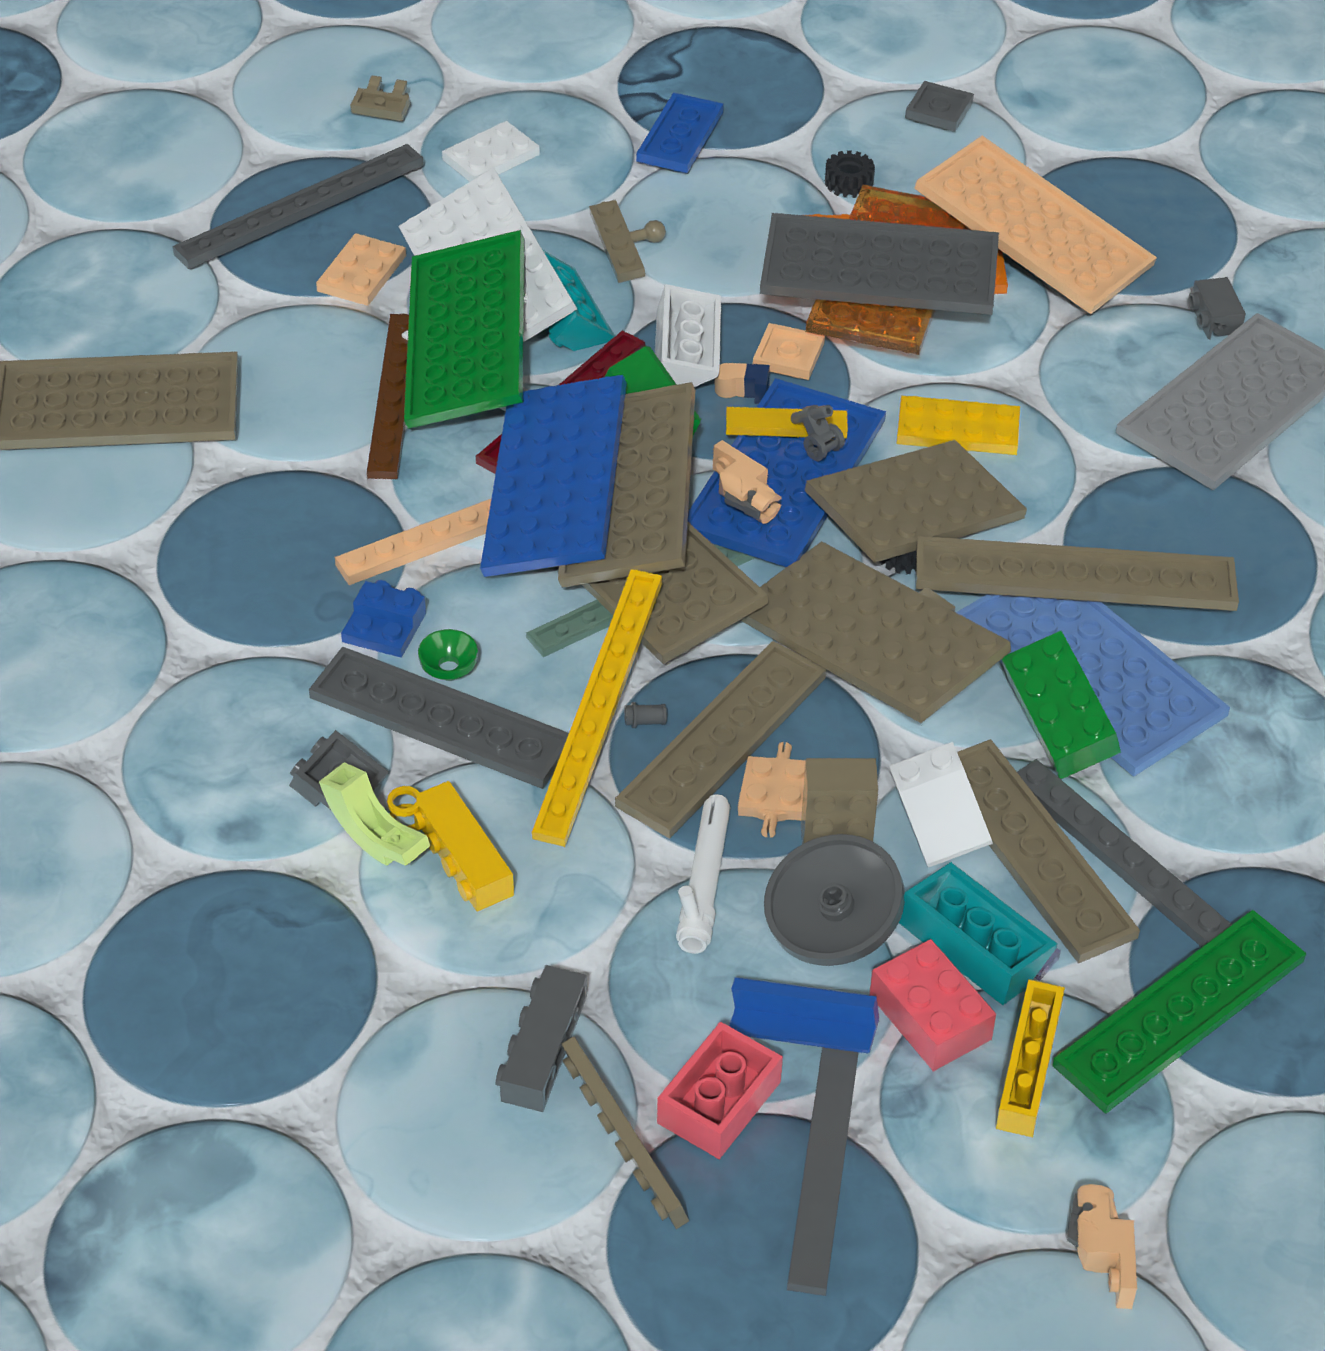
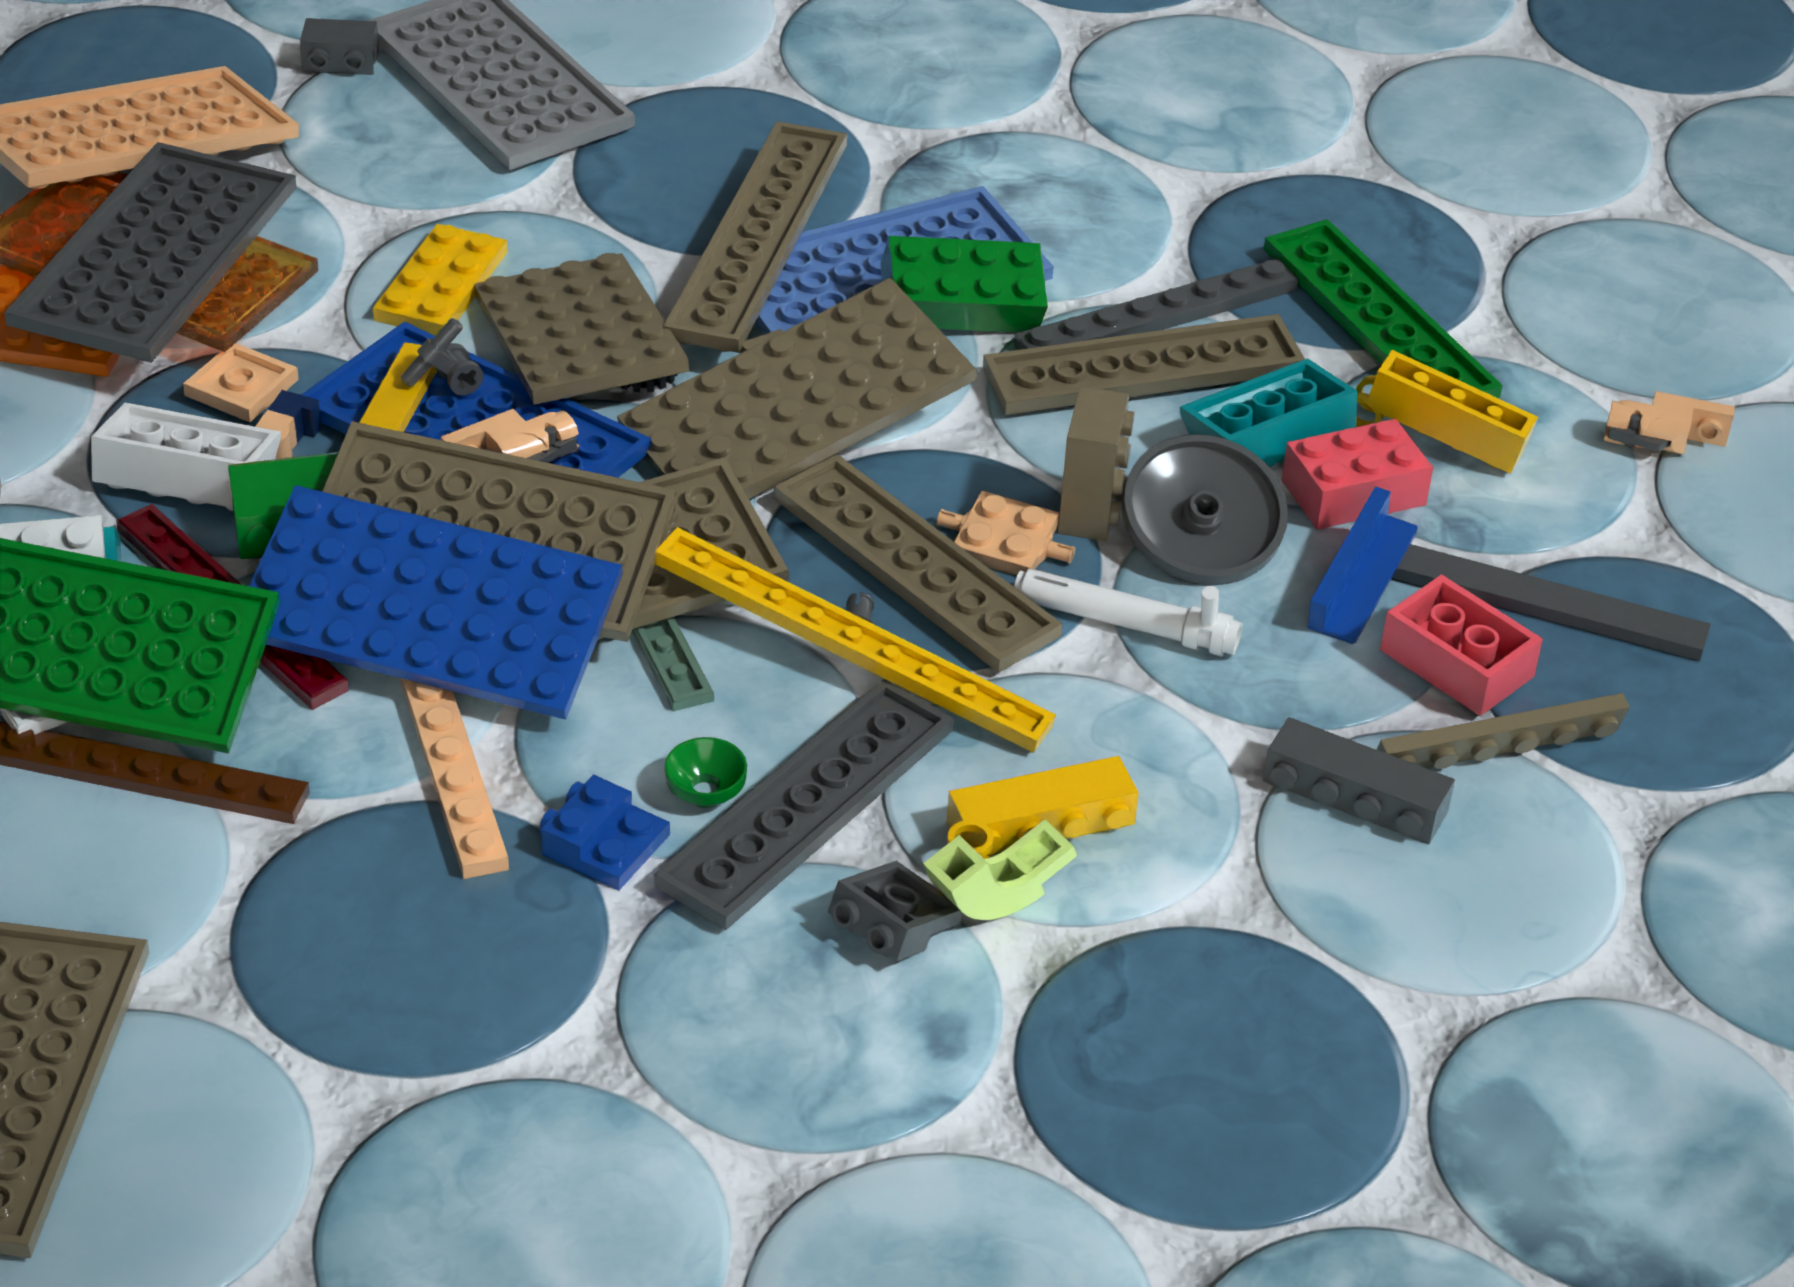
camera: 80 degrees left, 5 degrees down
(940, 804) = (1051, 391): white slope -> none

